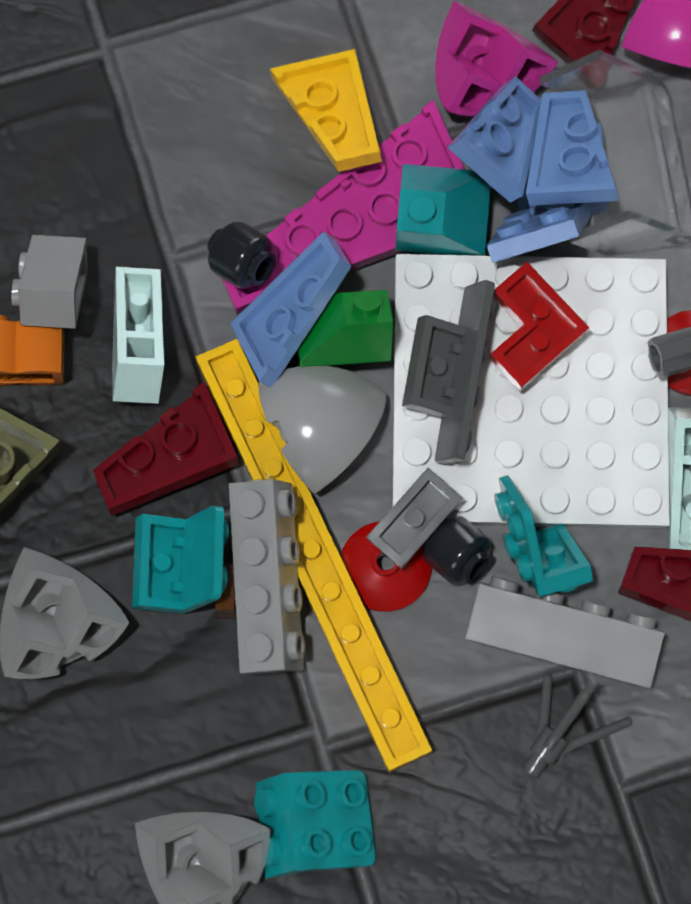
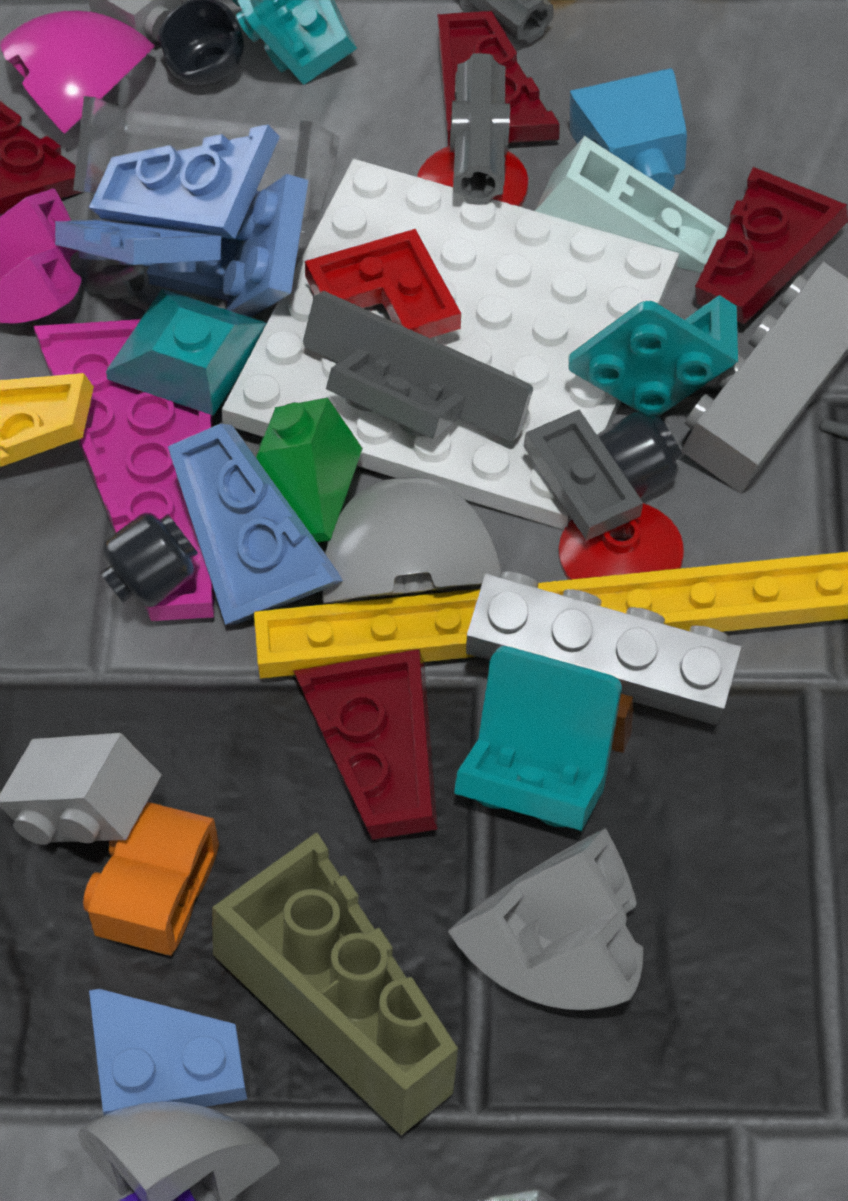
camera: 65 degrees left, 20 degrees down
(137, 336) = (204, 724): light aqua slope -> none

